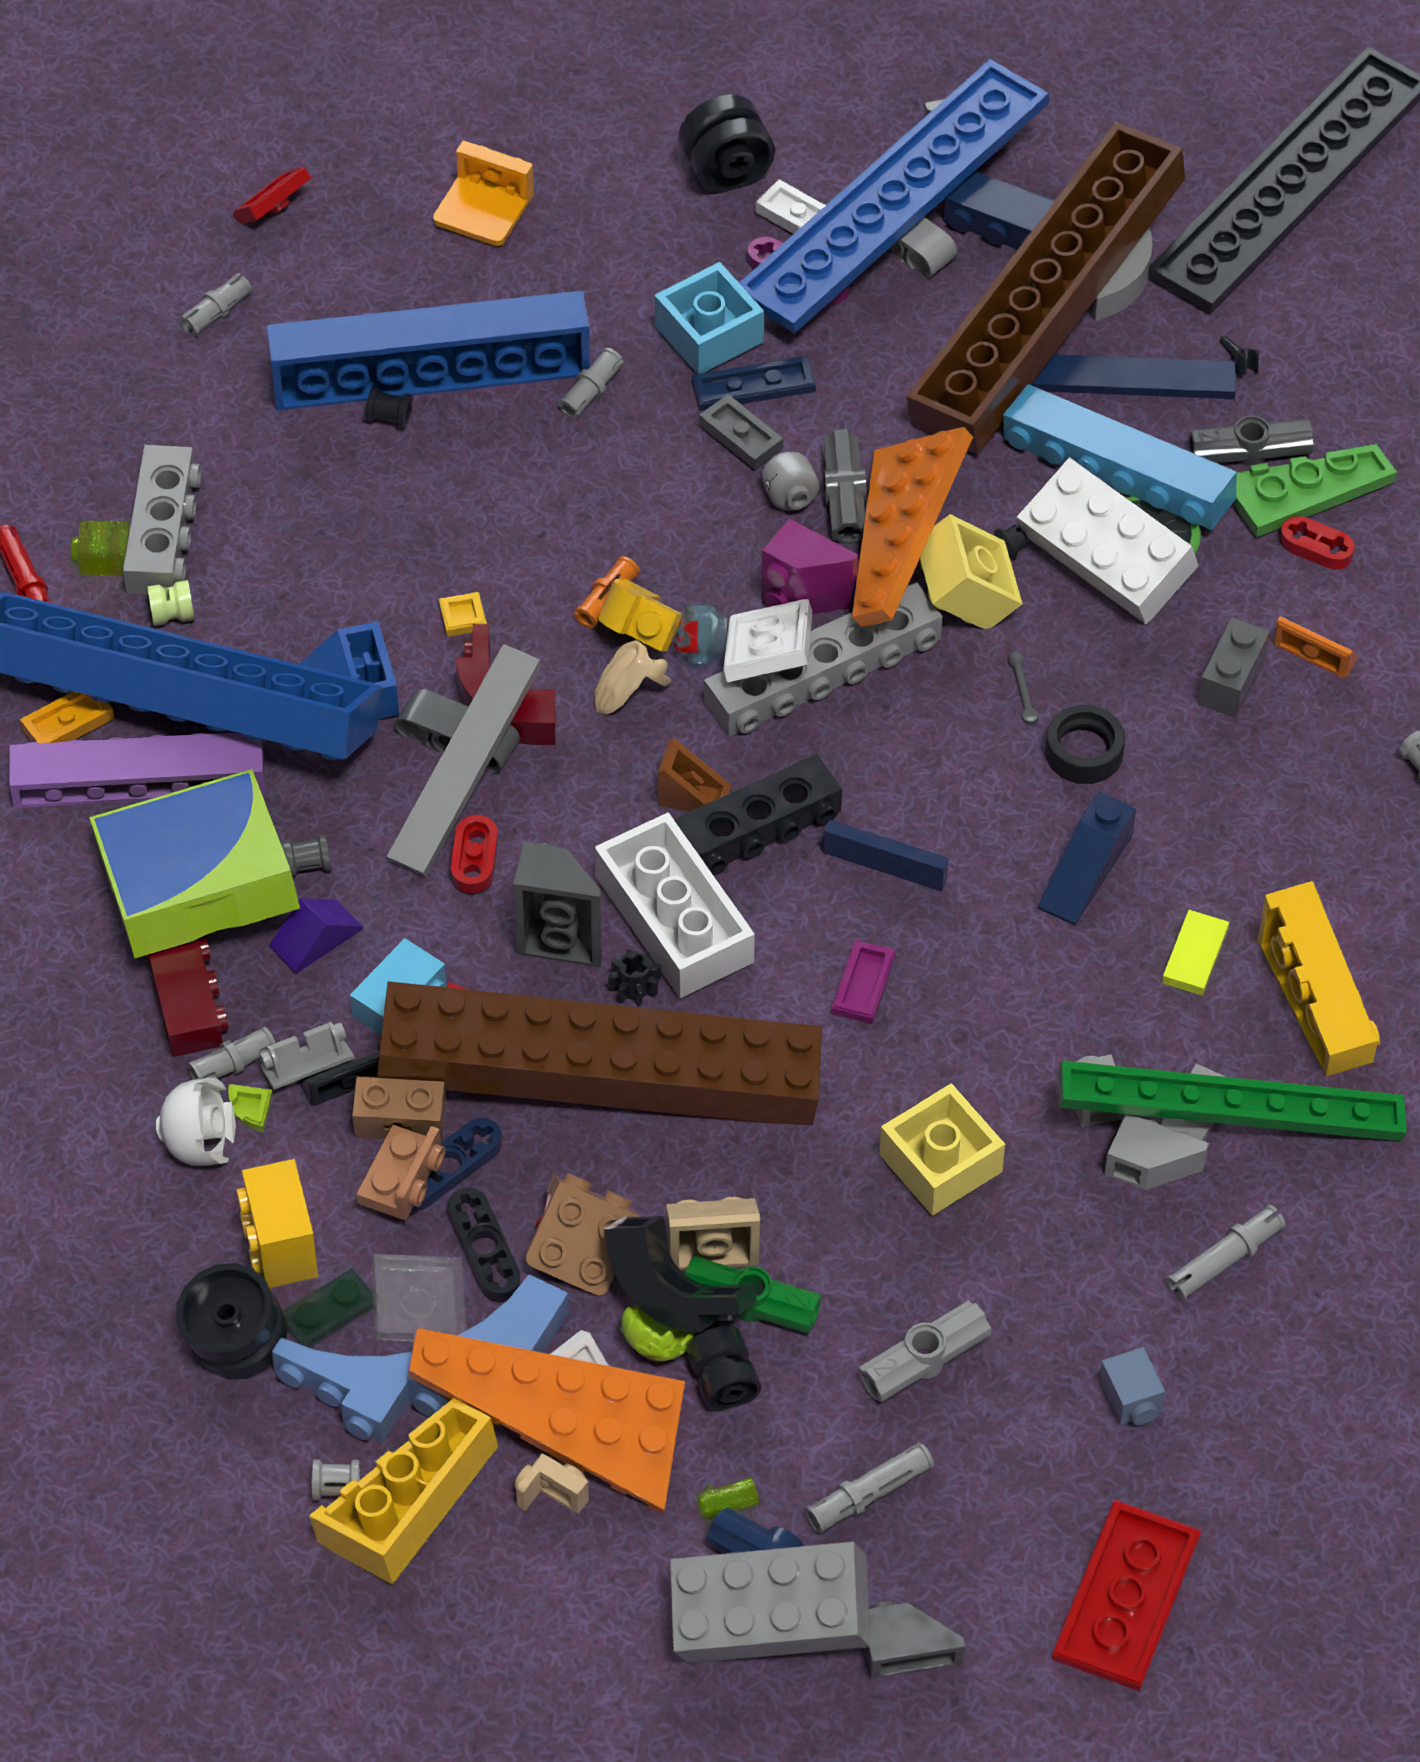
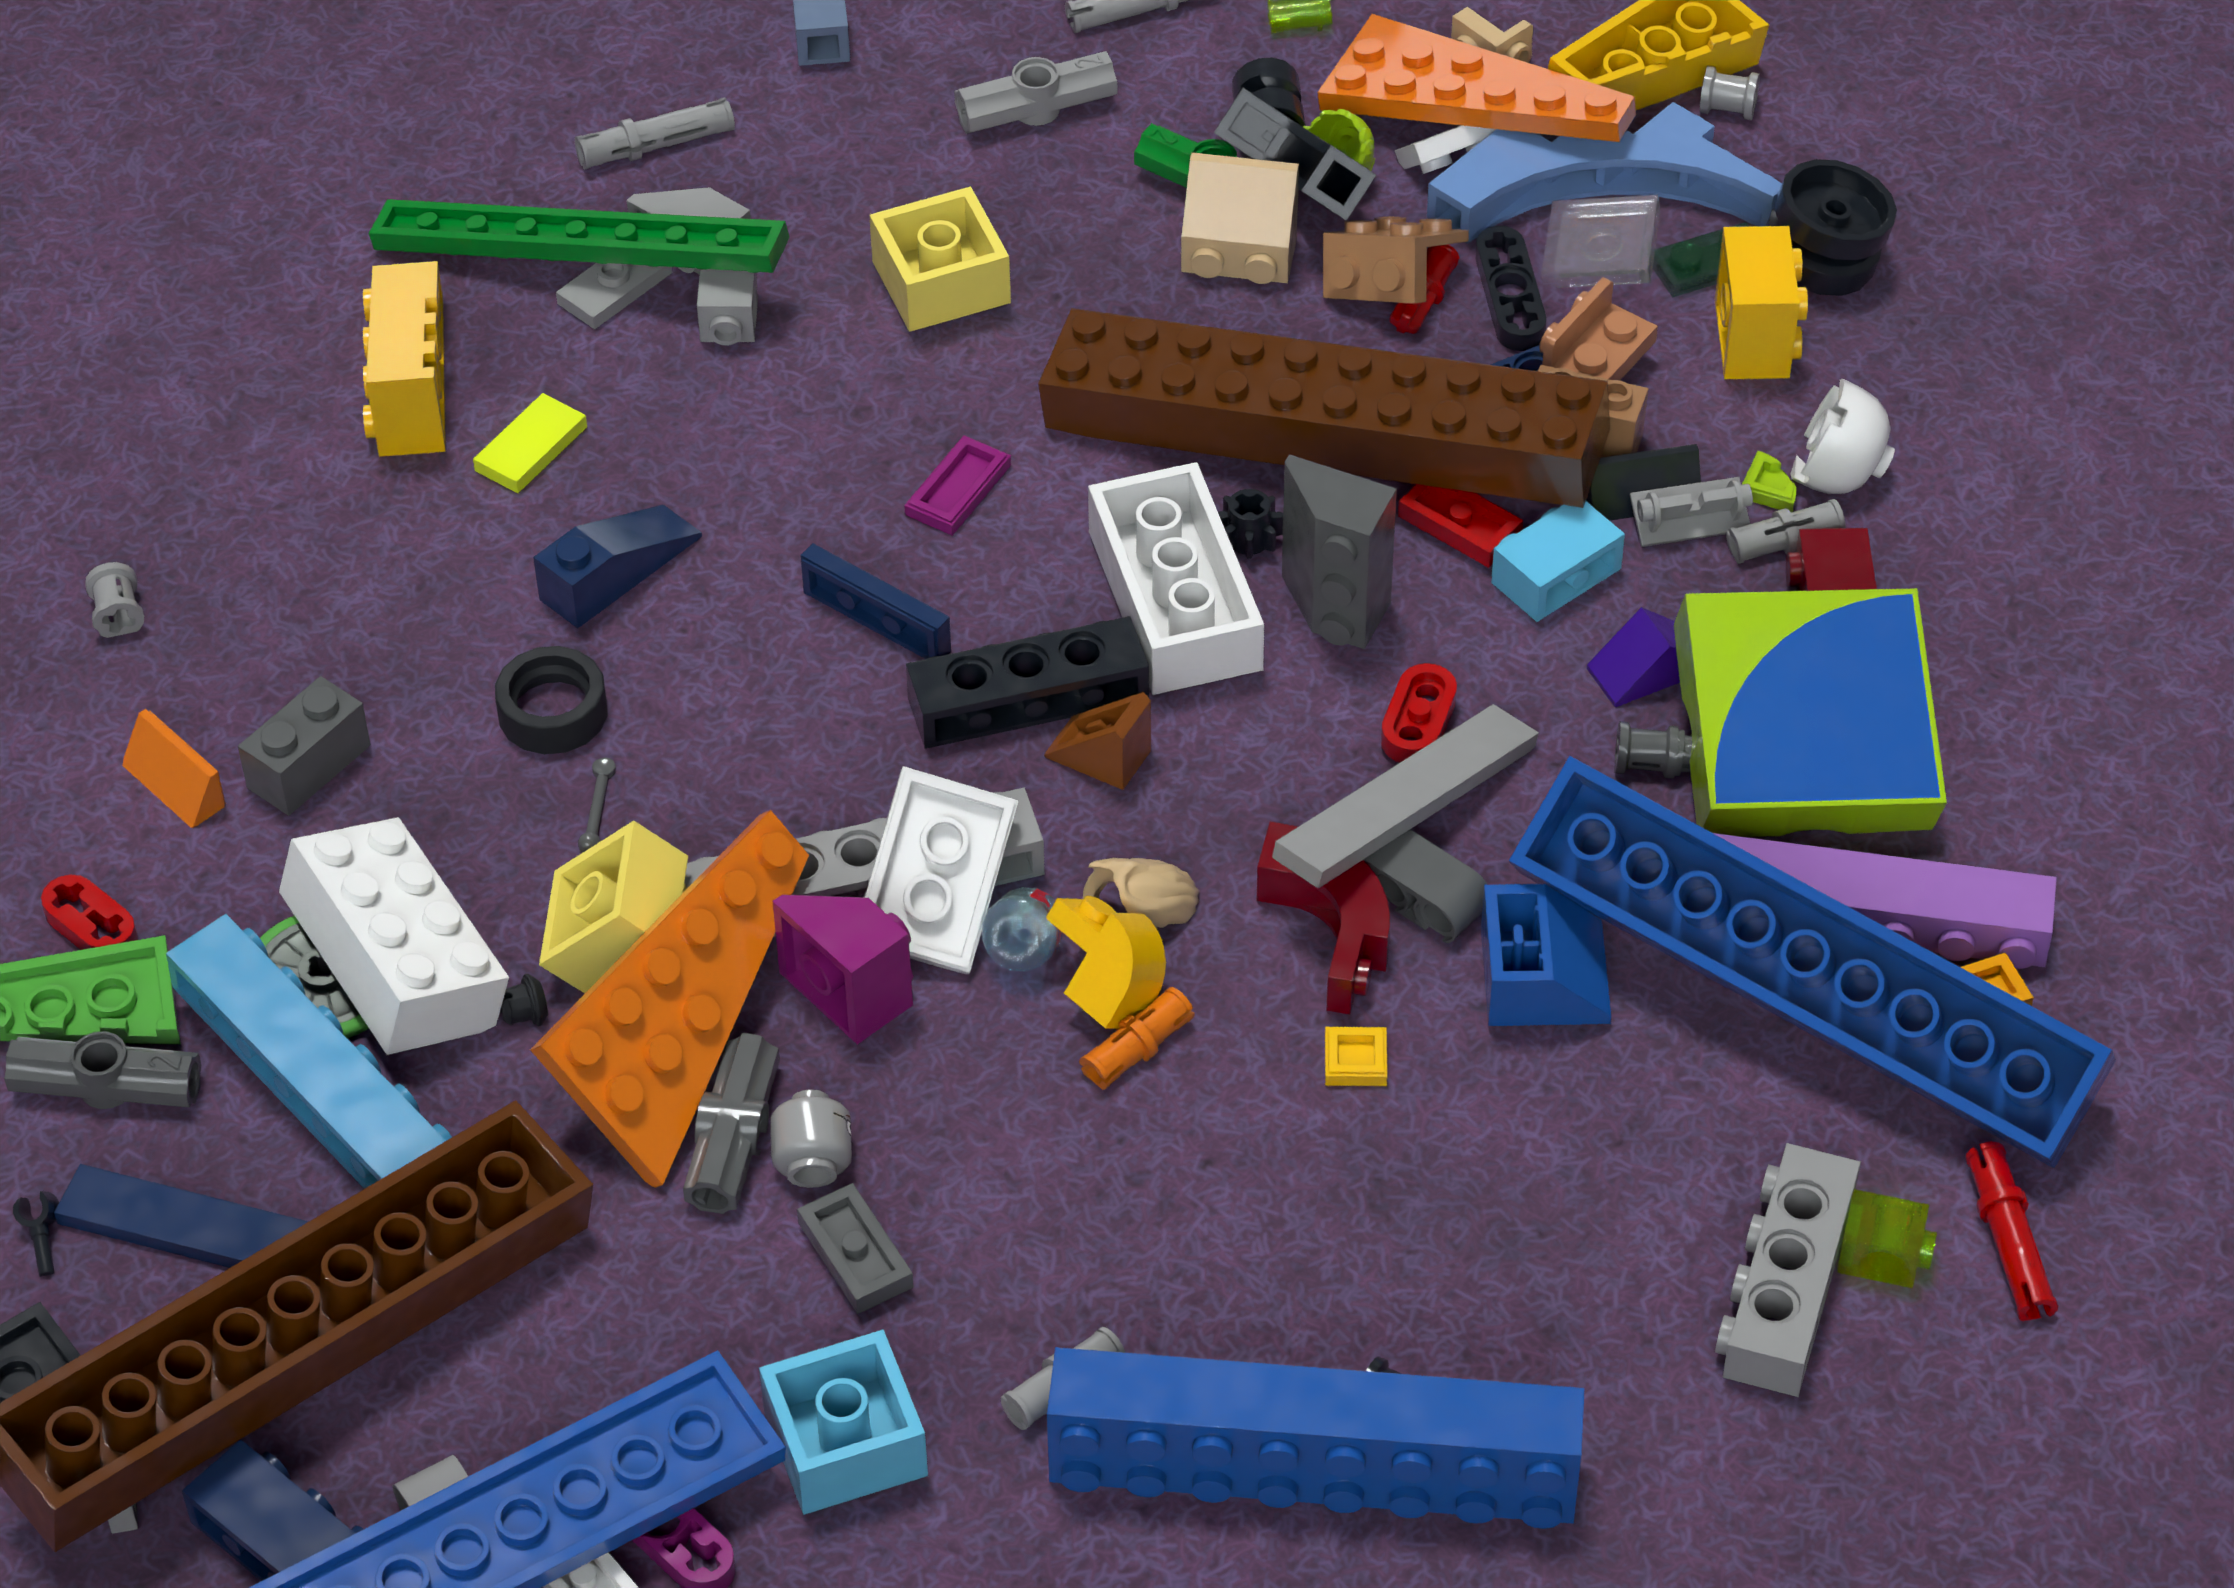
camera: 165 degrees left, 5 degrees down
(170, 603) = (1778, 1126): yellowish green wheel -> none
(755, 382) = (769, 1335): dark blue tile -> none

